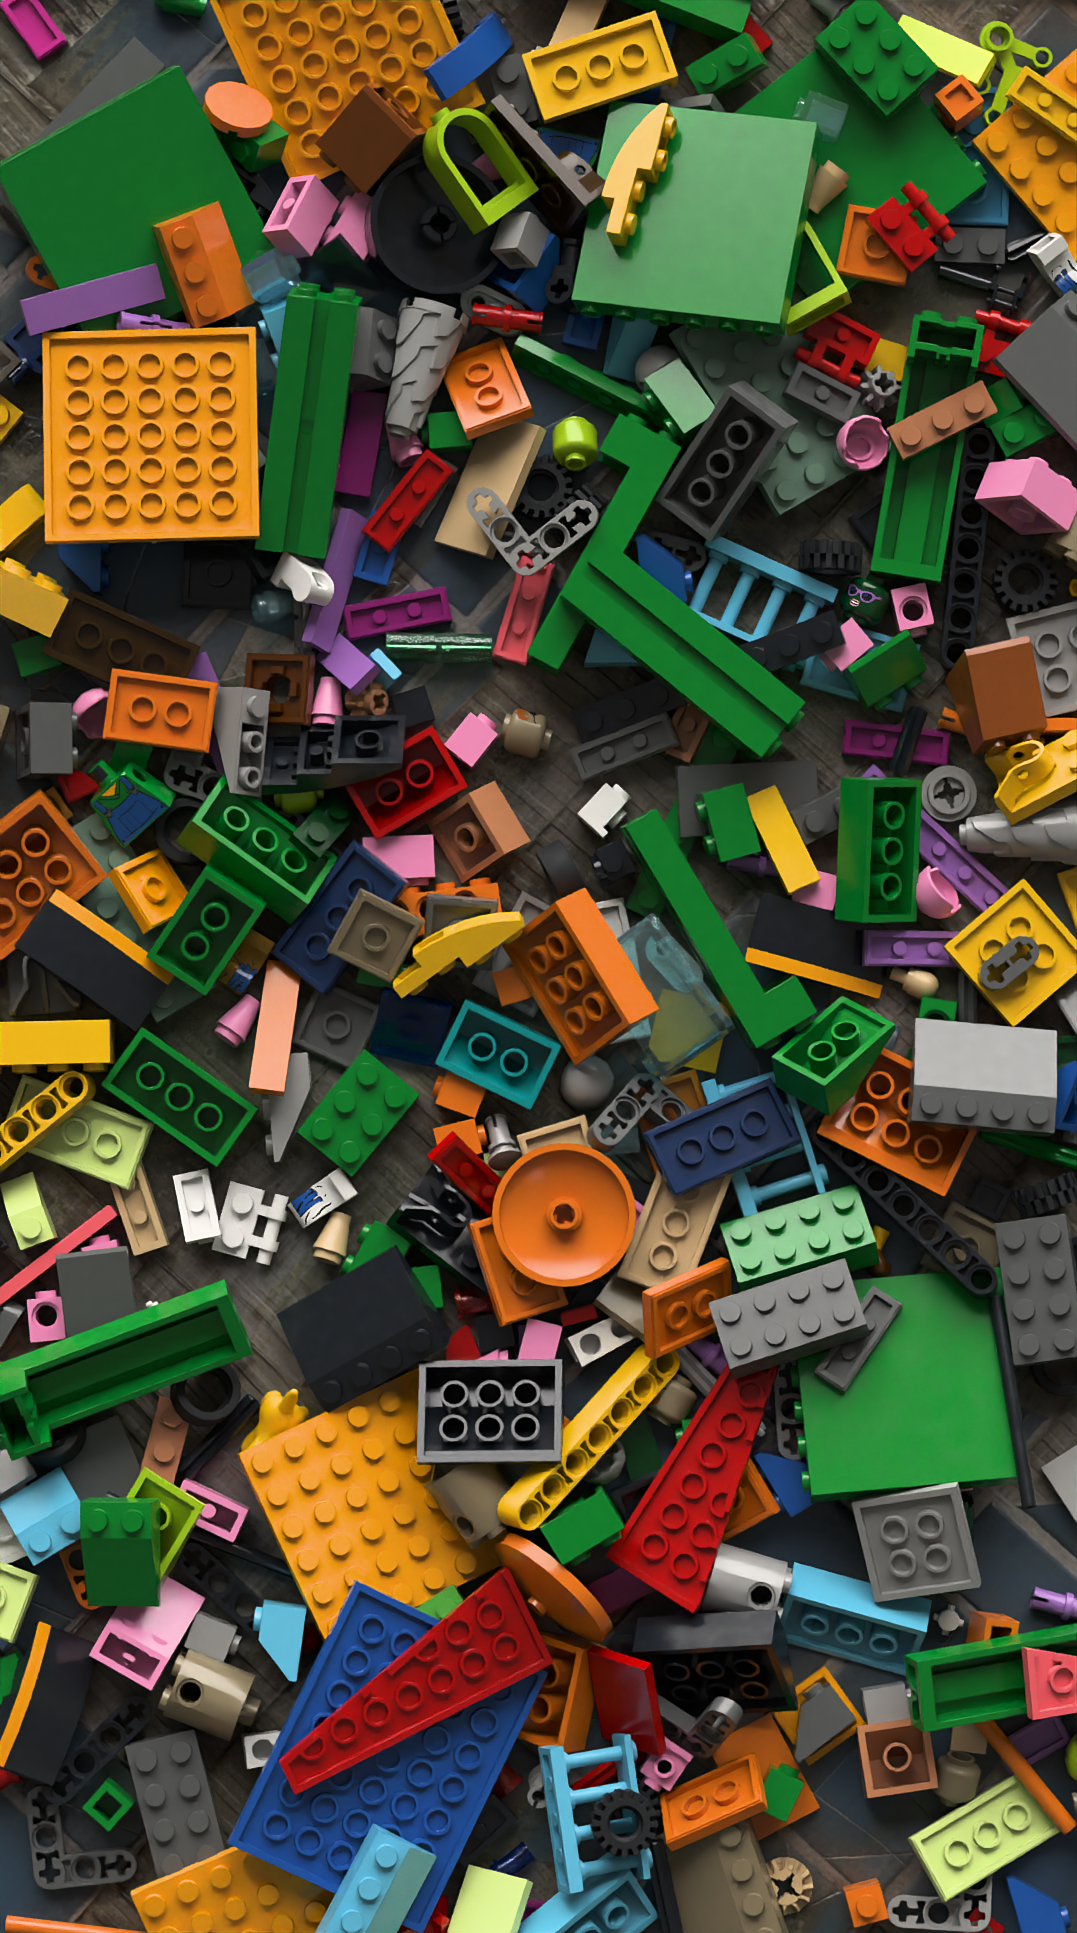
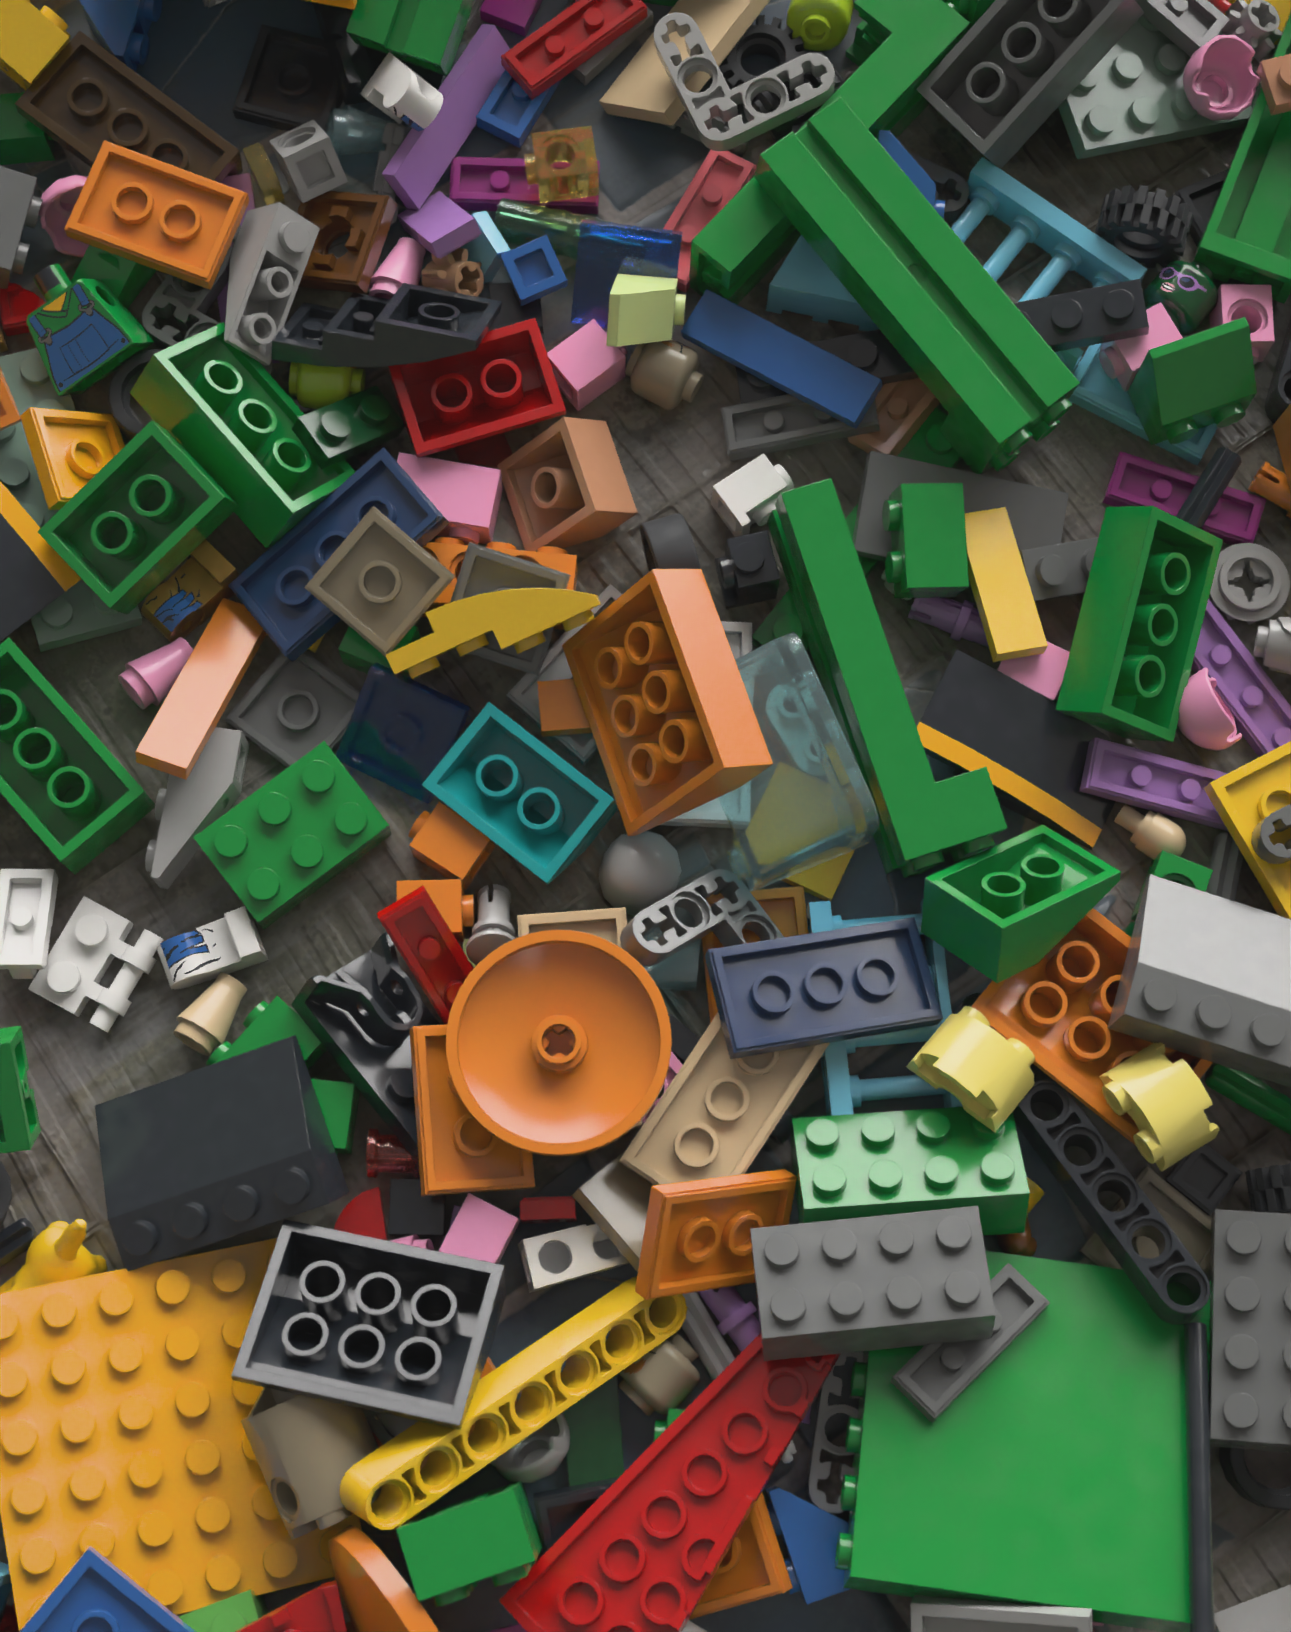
camera: 10 degrees right, 10 degrees down
(218, 654) = (263, 174): none -> clear yellow tile
(246, 637) = (308, 161): none -> light grey brick
(421, 684) = (534, 270): none -> blue plate
(430, 588) = (566, 145): none -> clear yellow brick
(484, 673) = (613, 250): none -> clear blue tile
(503, 701) = (643, 310): none -> yellowish green slope
(603, 712) = (781, 359): none -> blue tile
(828, 1168) = (976, 1066): none -> light yellow cylinder
(947, 1166) = (1163, 1102): none -> light yellow cylinder

